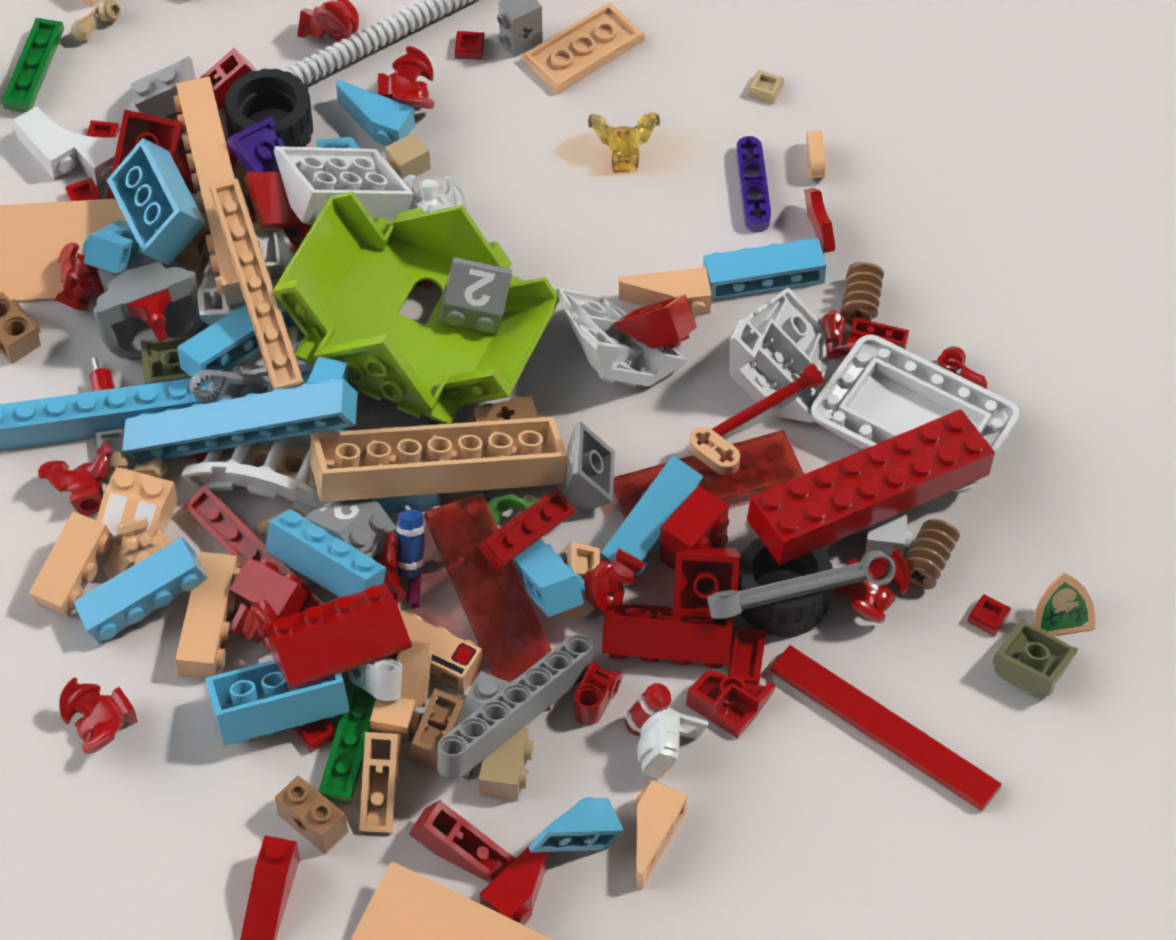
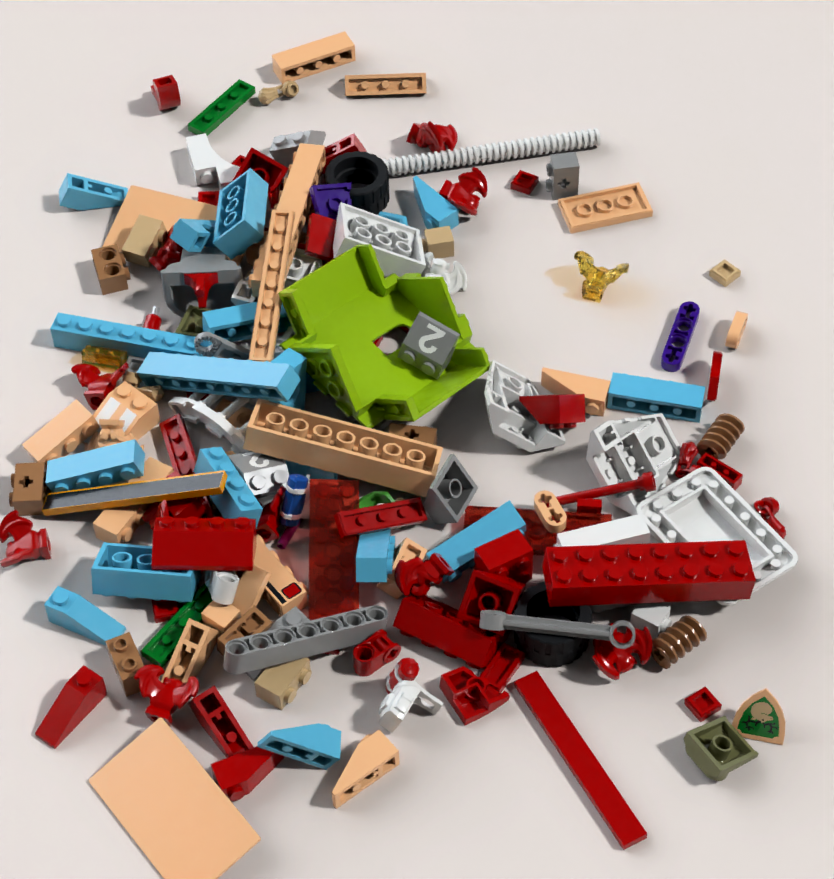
camera: 25 degrees right, 5 degrees down
(35, 275) = (144, 240): none -> tan brick
(65, 445) = (103, 357): none -> clear yellow piece
(65, 644) = (28, 488): none -> medium nougat brick
(212, 604) = (135, 493): none -> tile
(223, 779) = (81, 616): none -> medium azure slope
(382, 831) = (164, 696): none -> red animal
(754, 428) = (589, 505): none -> red plate
(806, 453) = (620, 531): none -> white brick

